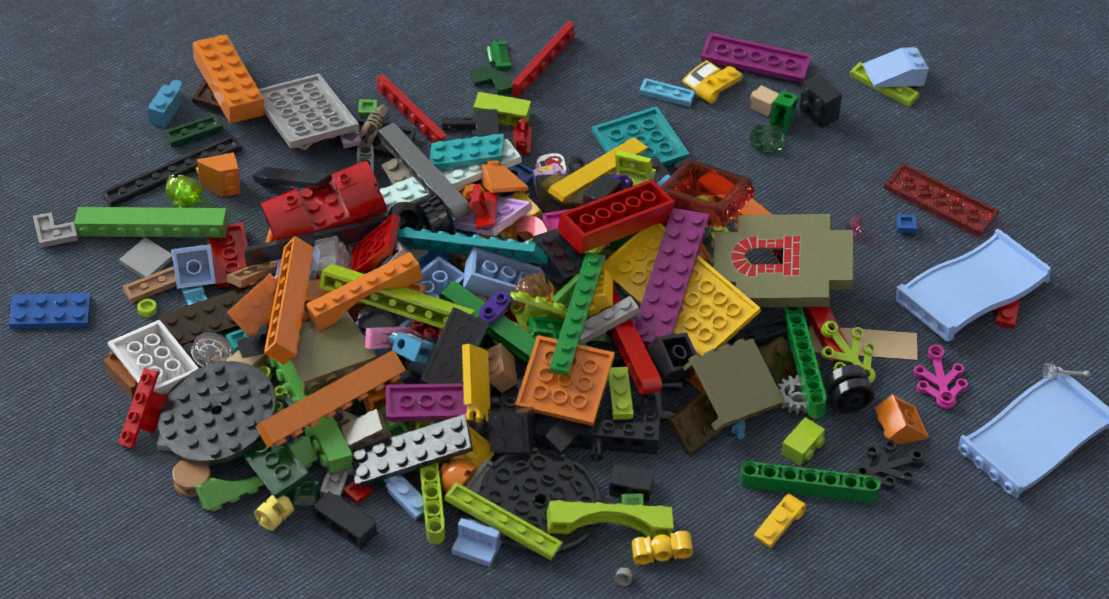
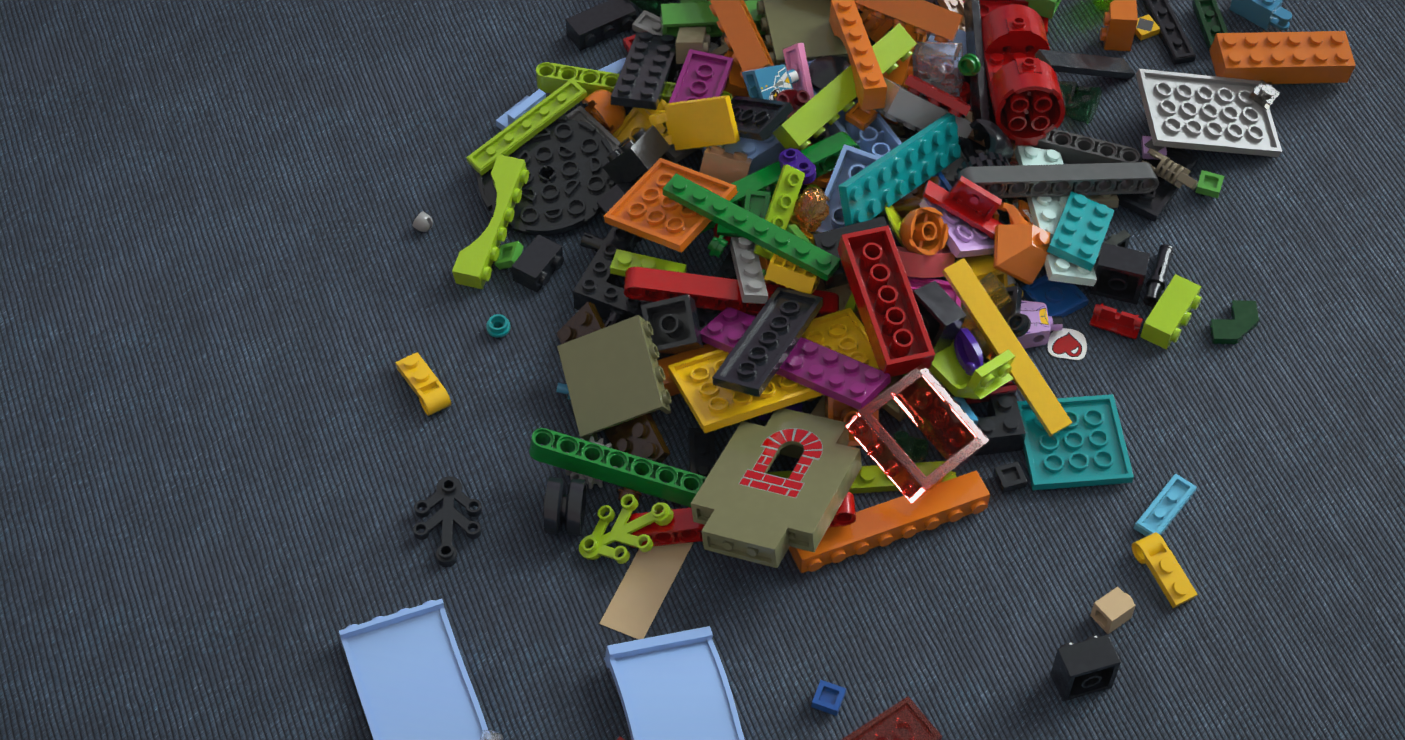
camera: 110 degrees right, 5 degrees up
(270, 84) = (1264, 95): none -> clear smoke plate
(336, 230) = (969, 65): none -> green plate
(409, 109) = (1191, 221): red plate -> none
(499, 55) = (1282, 339): green piece -> none
(525, 224) = (923, 231): none -> orange cylinder
(542, 60) = (1259, 383): red plate -> none
(662, 547) = (437, 260): yellow piece -> none
(673, 284) = (768, 341): none -> black plate
(700, 74) = (1187, 554): slope -> none
(700, 488) = (498, 321): none -> teal plate
(756, 57) = (1206, 634): magenta plate -> none
(767, 138) = (1041, 590): clear green dish -> none
(785, 105) = (1081, 618): green torso -> none
(803, 441) = (514, 437): lime brick -> none
(809, 482) = (457, 437): green beam -> none
(855, 224) = (843, 629): clear pink plate -> none
(900, 421) = (502, 557): orange slope -> none
(944, 397) = (551, 631): dark pink plant -> none

